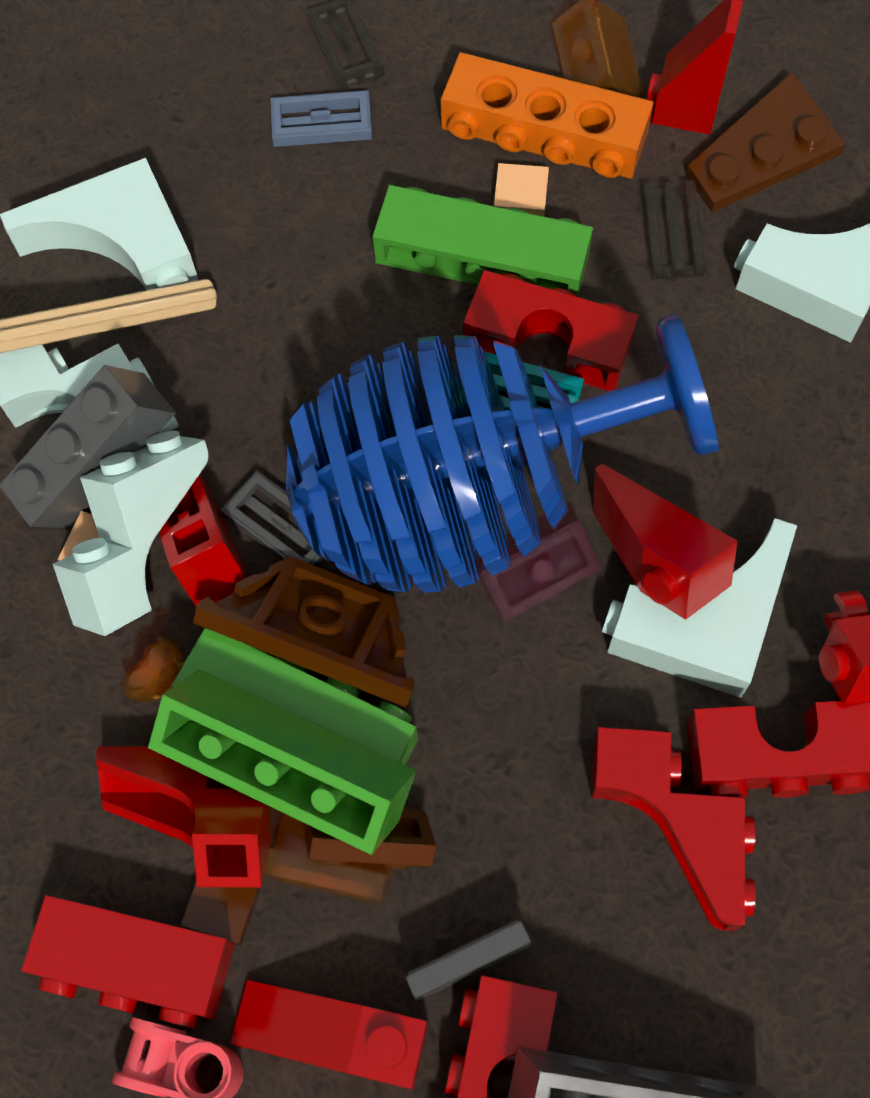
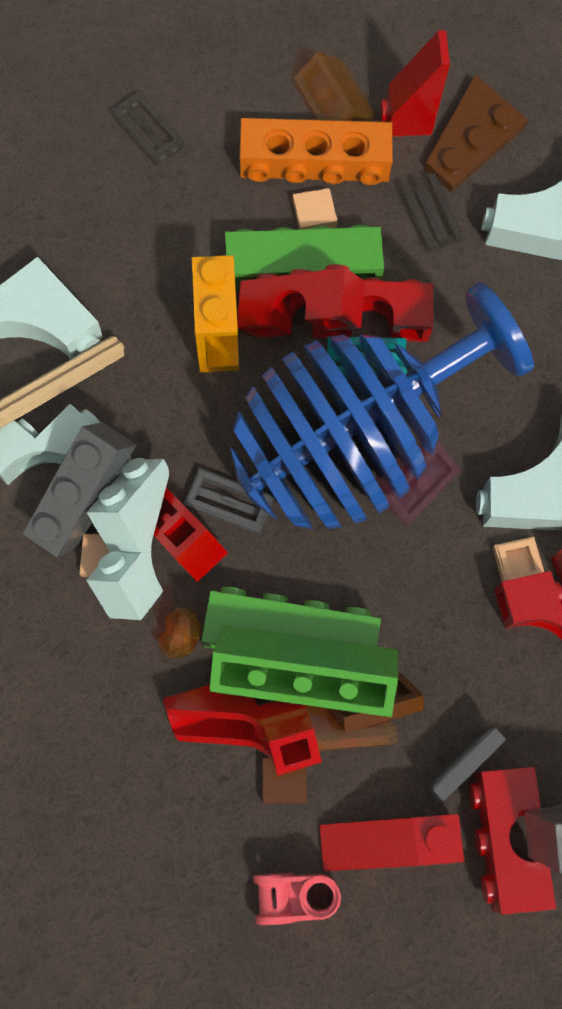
camera: 25 degrees left, 5 degrees up
(128, 961) = (237, 840): red brick -> none
(317, 624) = (287, 566): reddish brown wing -> none
(321, 125) = (152, 197): sand blue tile -> none
(330, 286) = (215, 313): none -> light orange panel
(475, 290) = (330, 296): none -> red arch
(639, 706) = (517, 559): none -> light nougat tile
(662, 546) = (502, 443): red slope -> none

